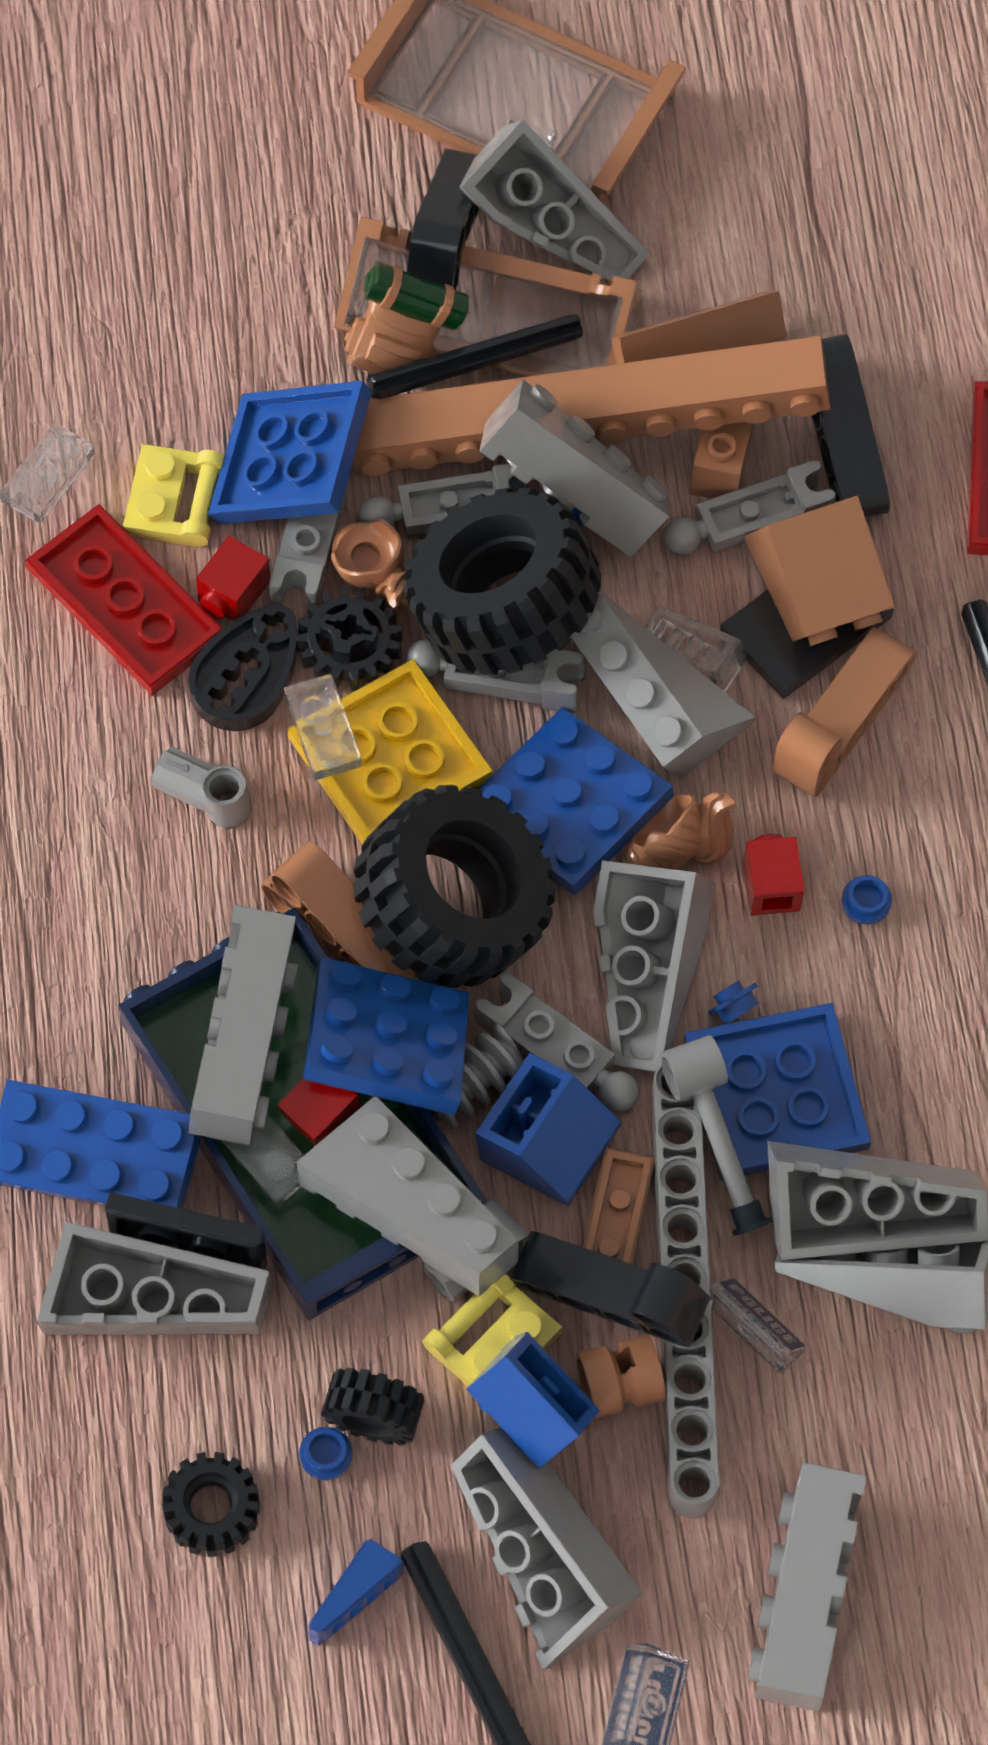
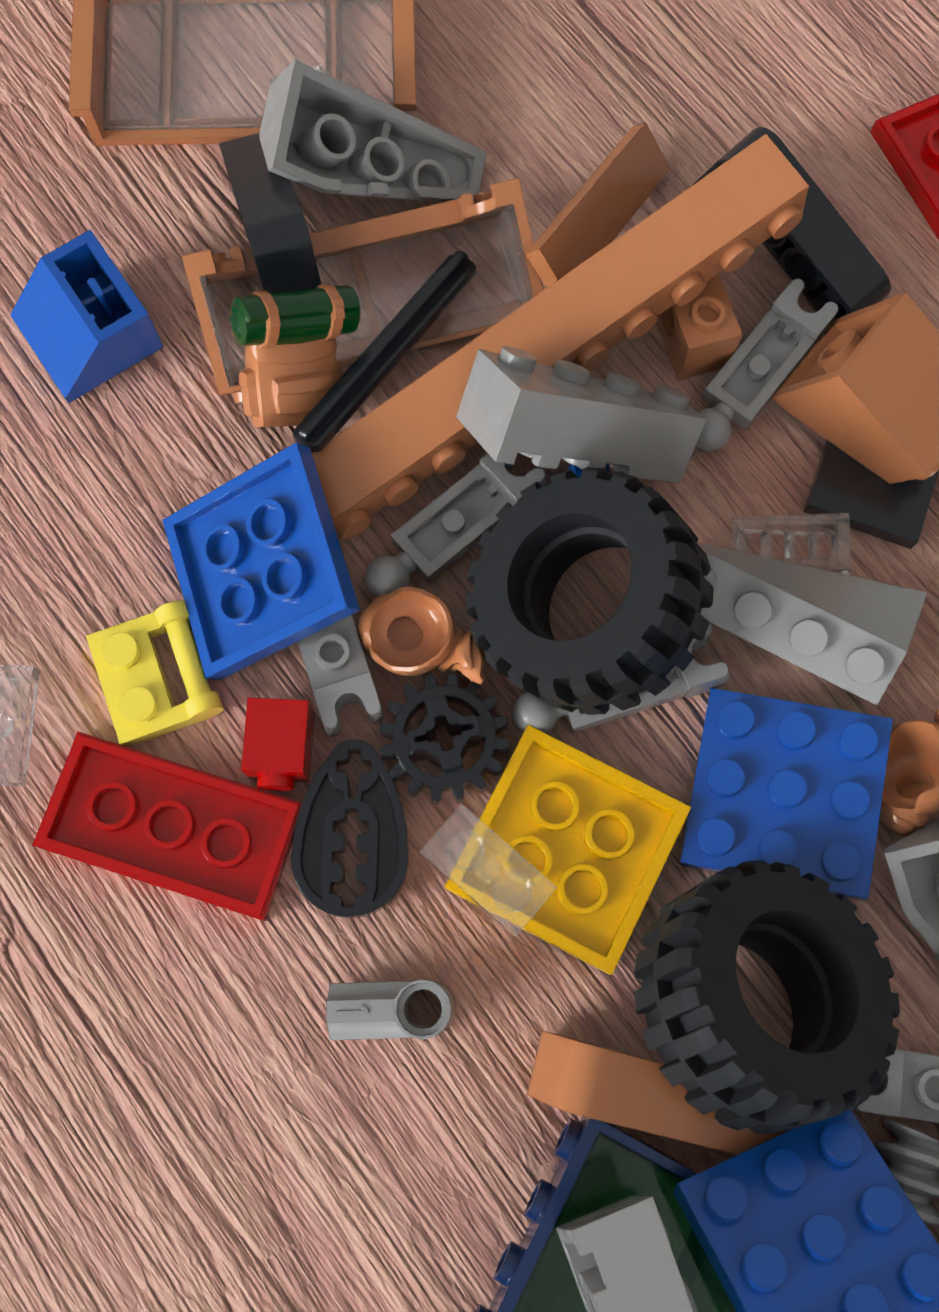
camera: 30 degrees left, 10 degrees up
(269, 226) = (83, 317): none -> blue slope

